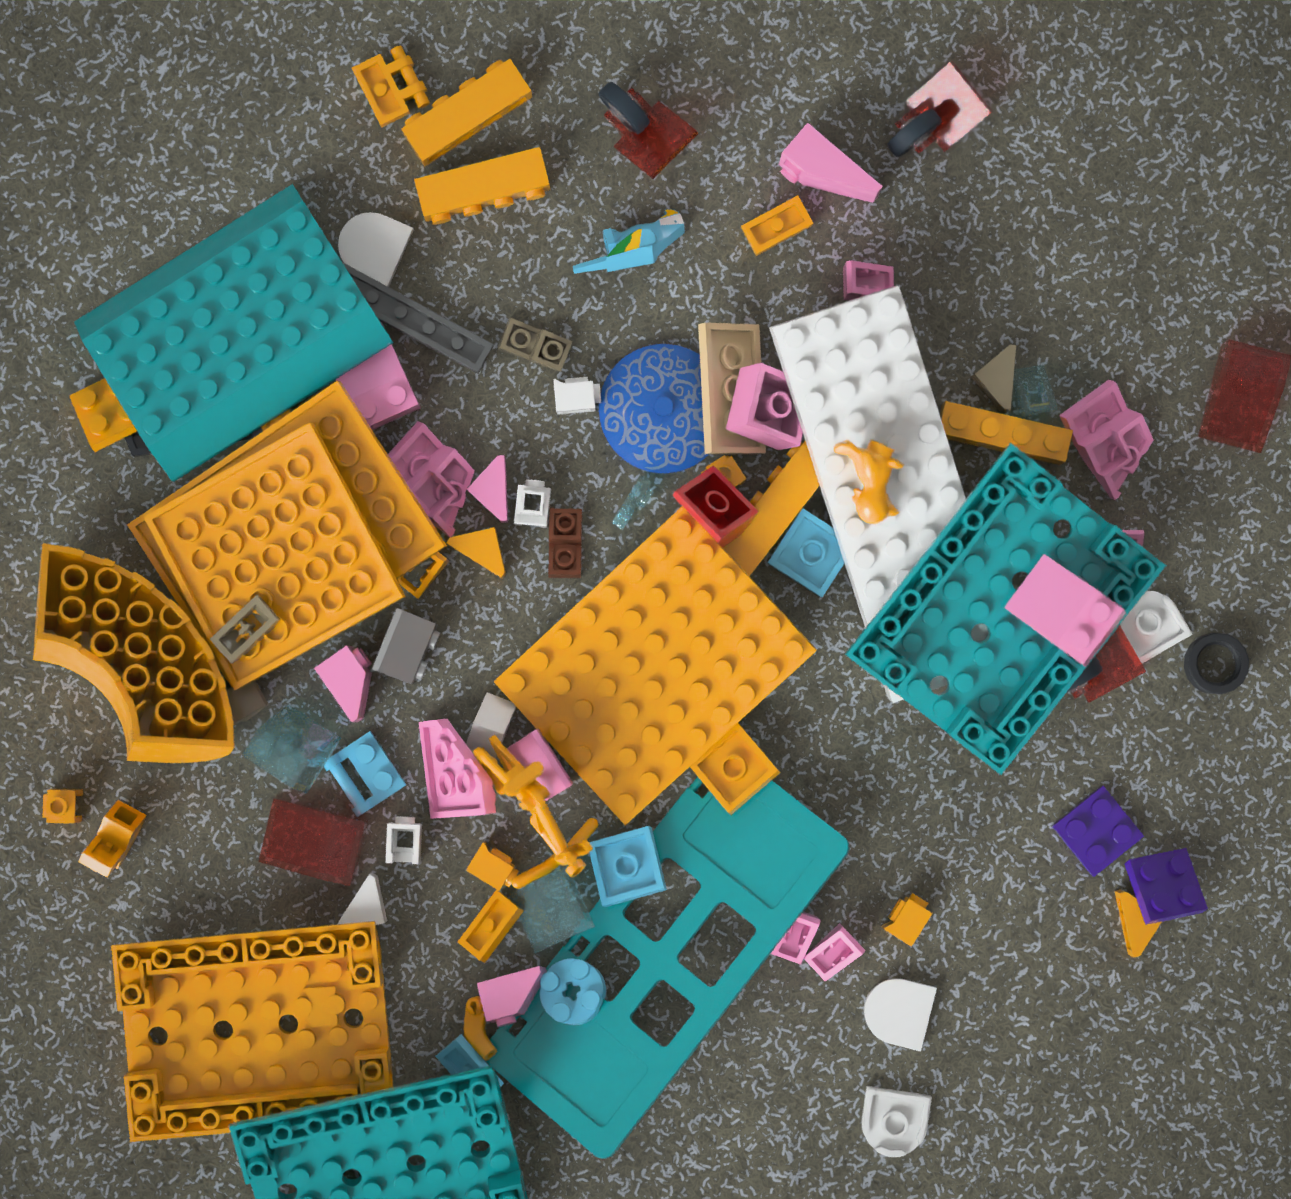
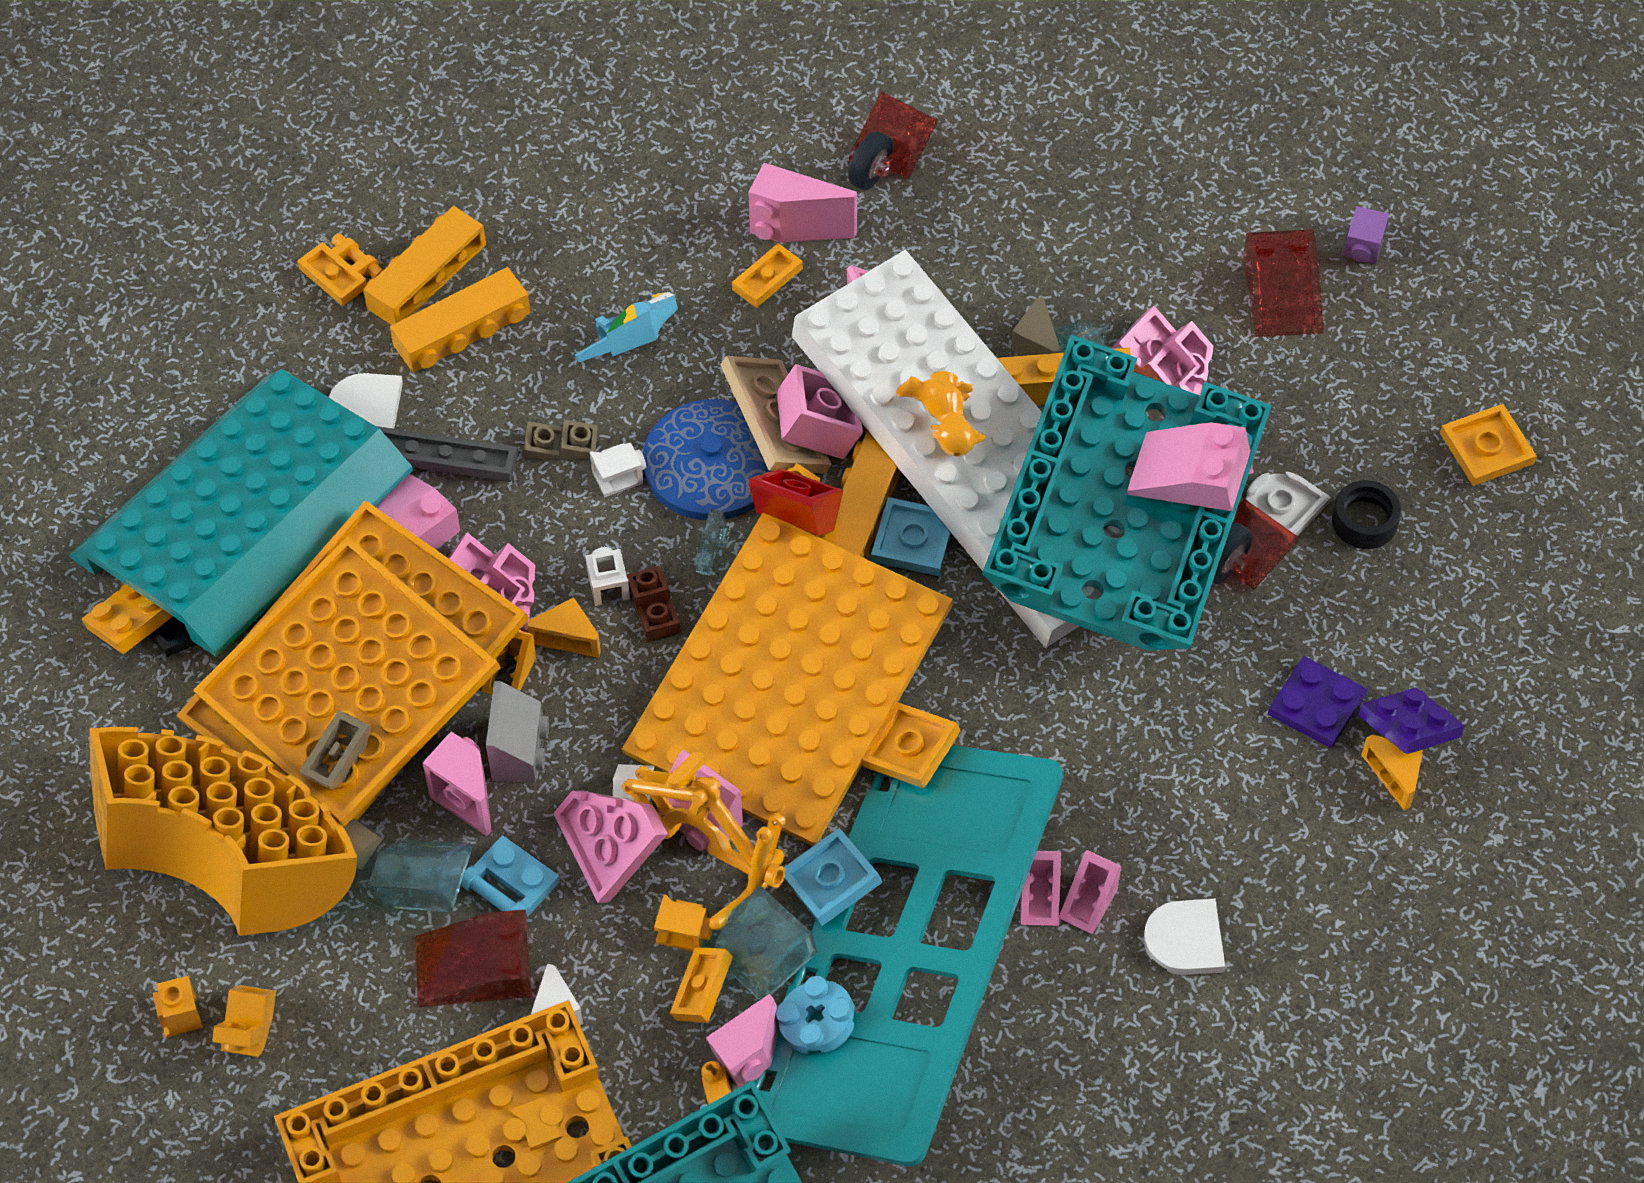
camera: 15 degrees left, 30 degrees down
(403, 854) = (573, 914): white window -> none
(491, 488) = (557, 573): bright pink slope -> none
(655, 132) = (603, 233): clear red plate -> none
(895, 1120) = (1227, 1049): white tile -> none
(908, 919) = (1154, 840): light orange window -> none

